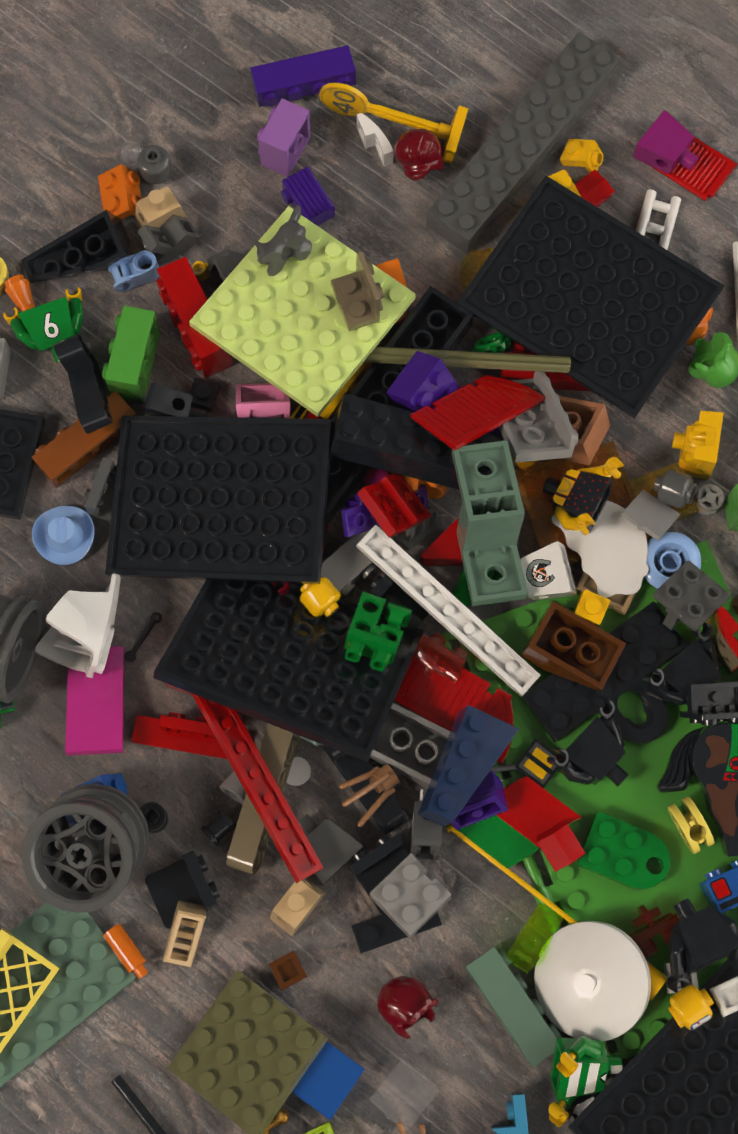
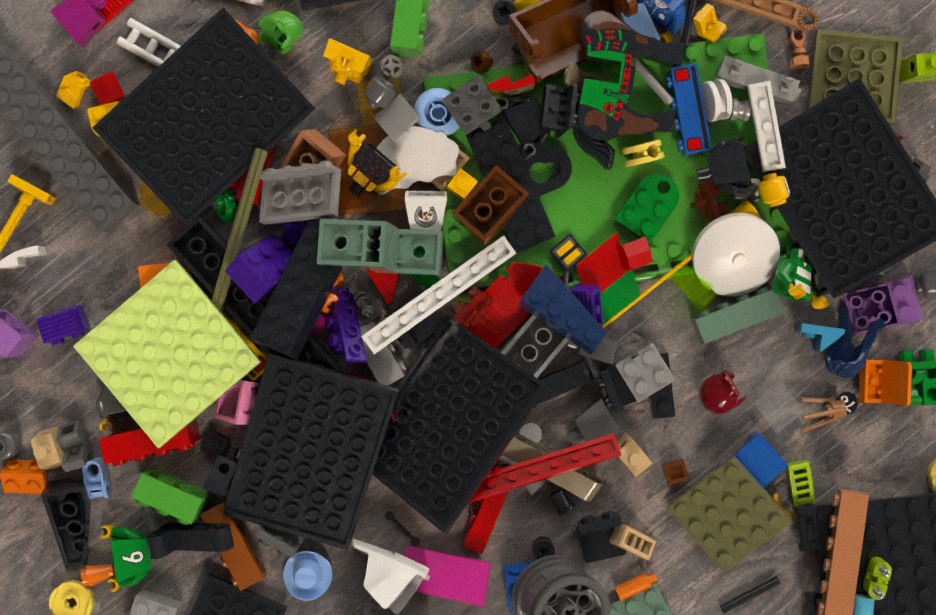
camera: 80 degrees left, 15 degrees up
(287, 242) = (109, 356): dark grey animal -> none
(320, 598) = (408, 389): yellow head -> none
(359, 295) = (168, 309): dark tan bracket -> none
(376, 640) = (448, 359): green hips -> none
(382, 780) = (557, 374): medium nougat plant -> none
(393, 504) = (347, 318): red slope -> none
(419, 153) = (44, 225): dark red hair -> none
(476, 410) = (285, 235): red piece -> none
(594, 751) = (571, 210): black torso -> none

